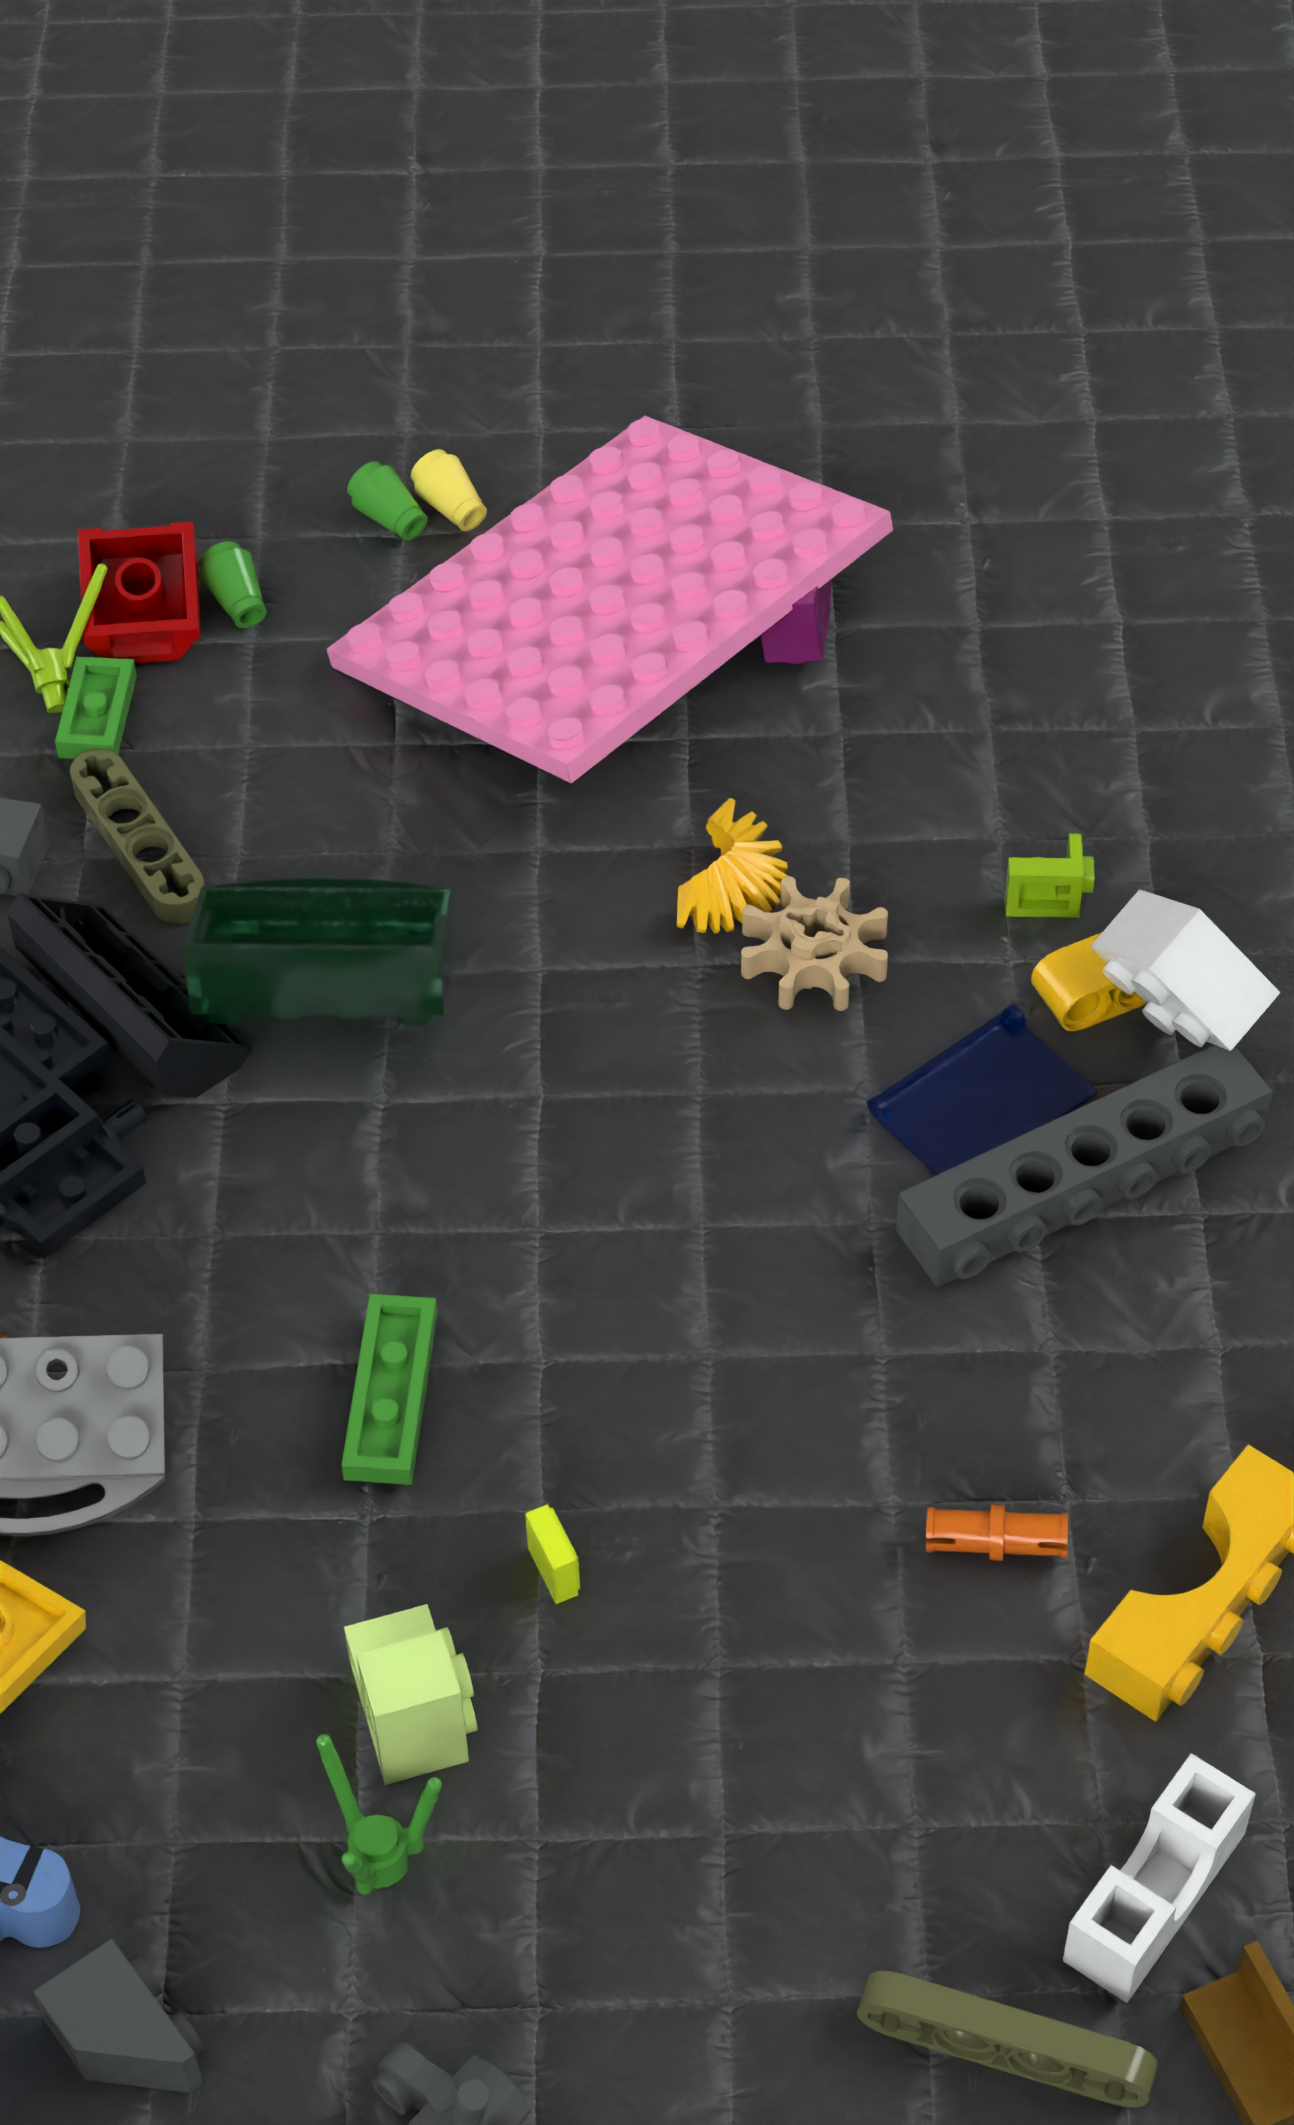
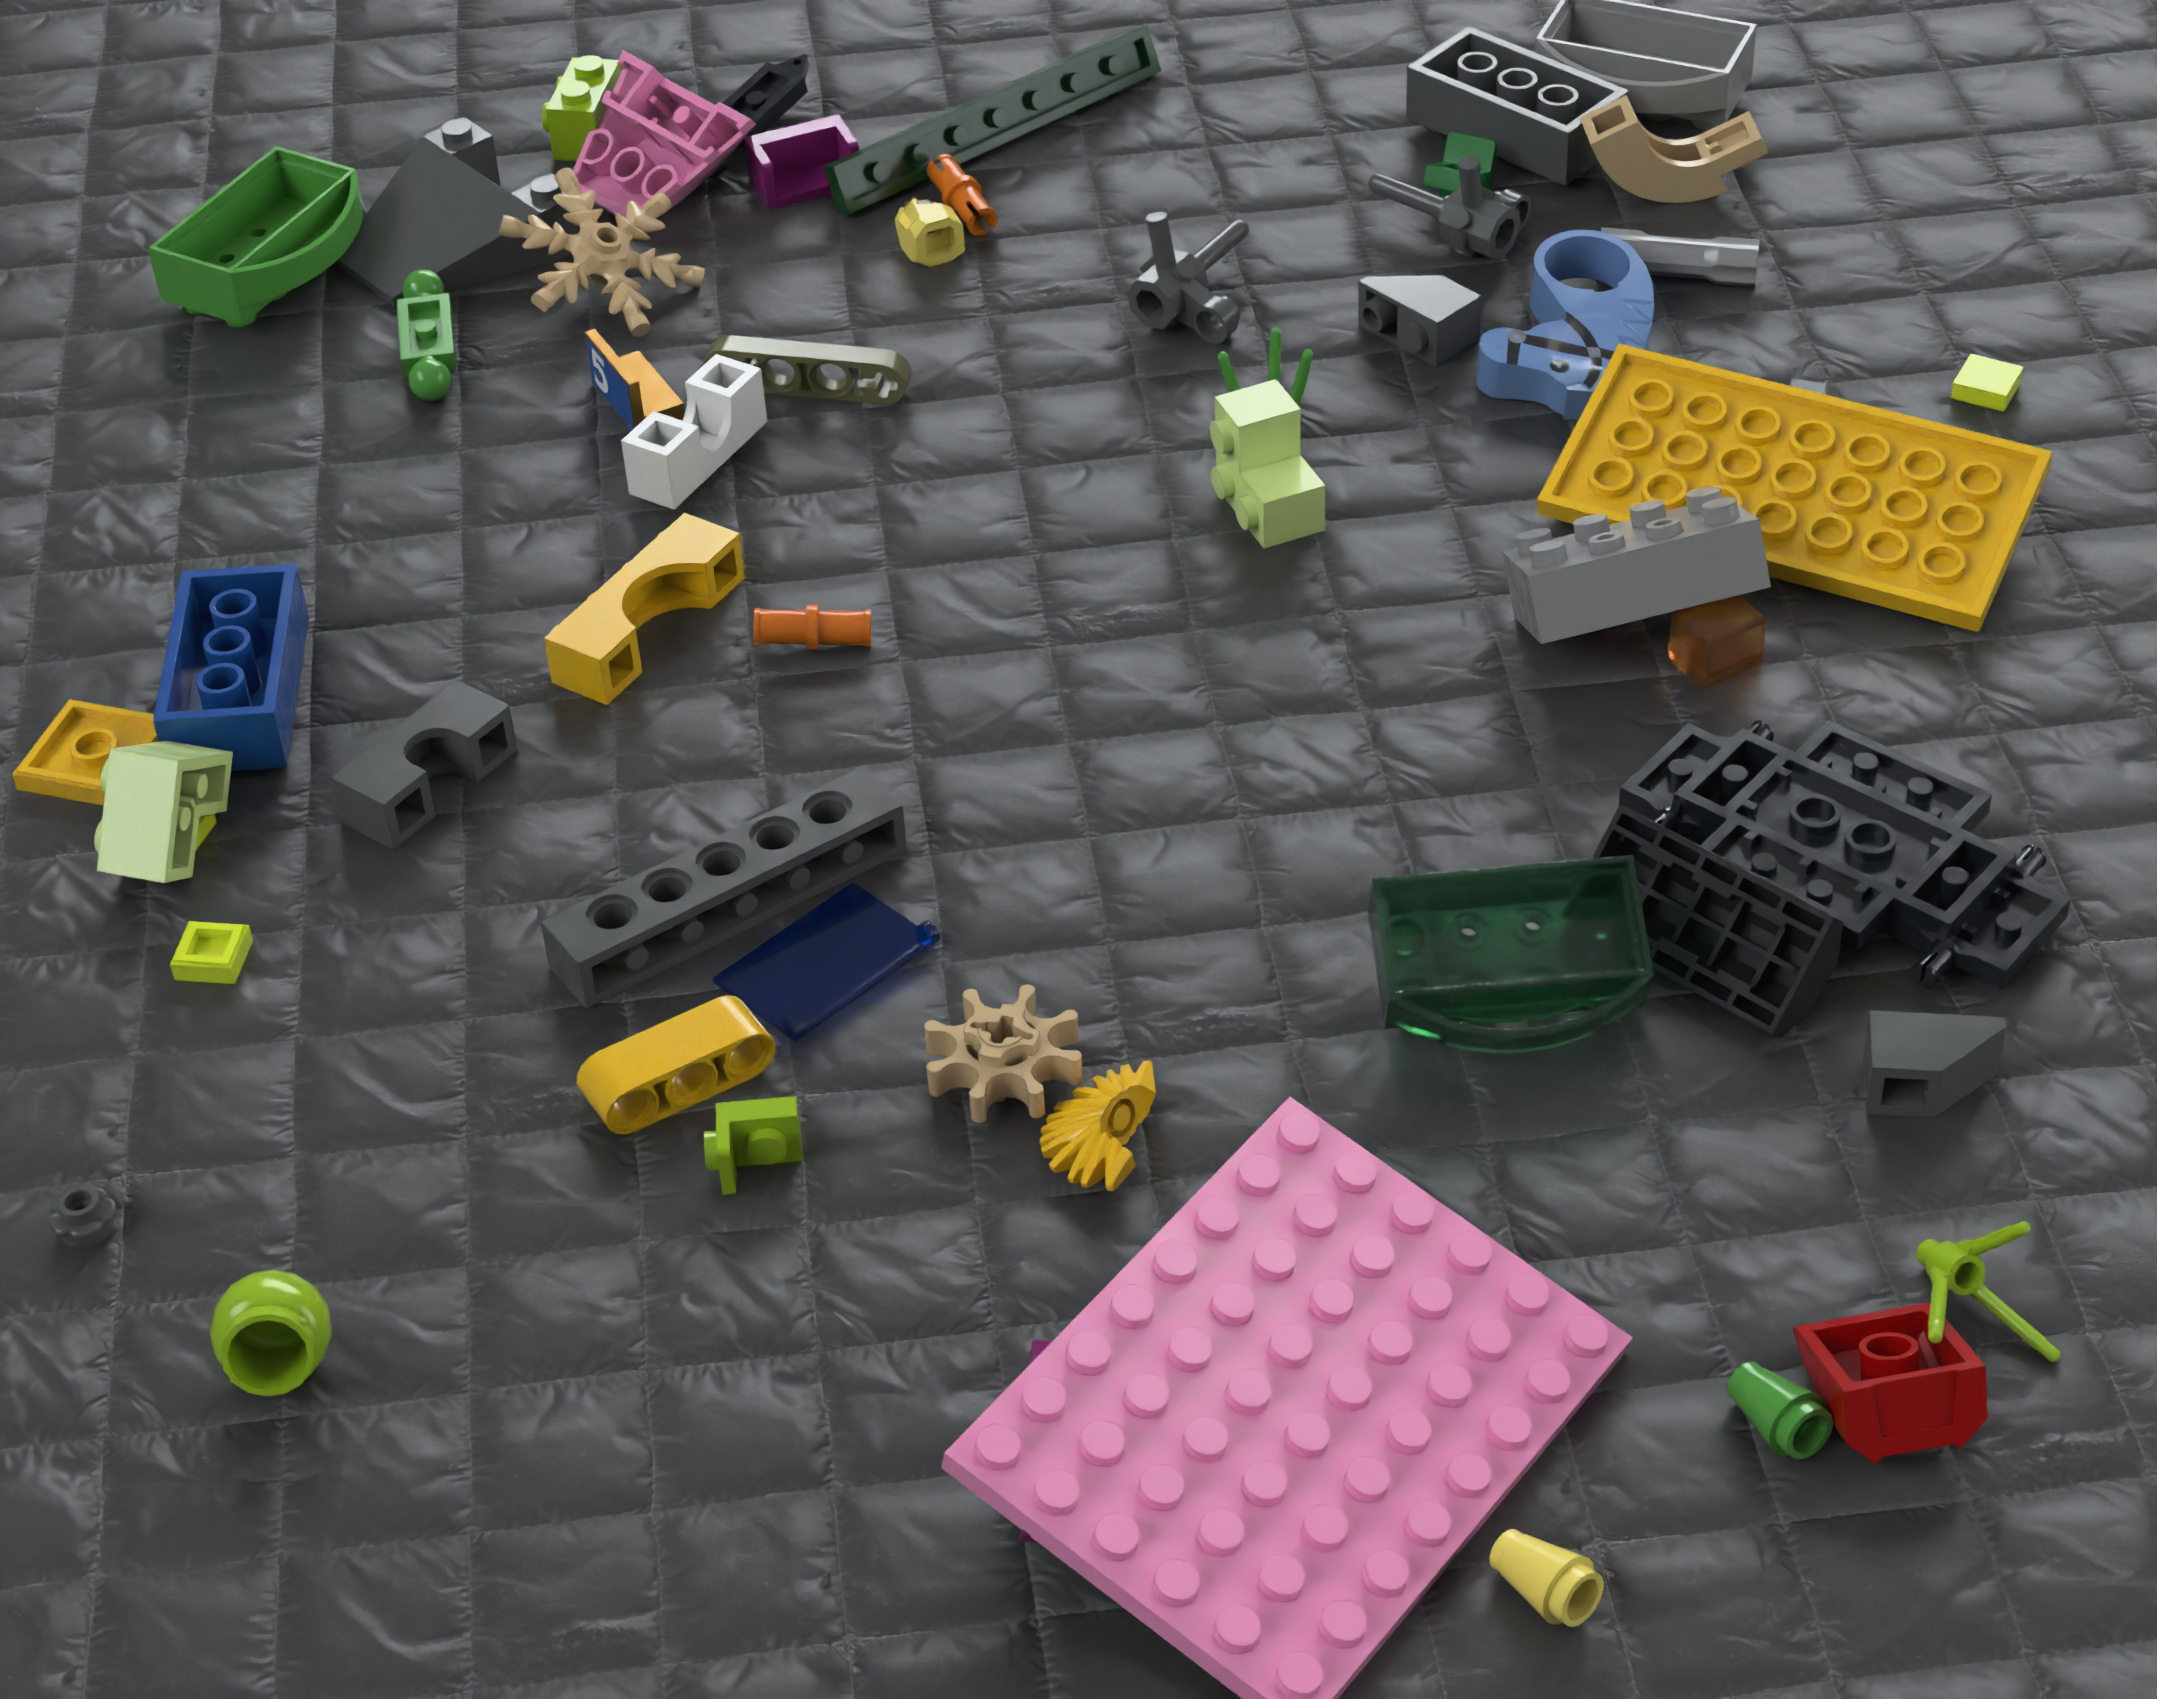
camera: 175 degrees right, 10 degrees down
(95, 706) = (1878, 1236): bright green plate -> none
(132, 837) = (1775, 1106): olive beam -> none
(385, 499) = (1627, 1552): bright green cone -> none
(390, 1389) = (1339, 669): bright green plate -> none
(553, 1553) = (1175, 572): neon yellow tile -> none
(1183, 971) = (617, 966): white piece -> none

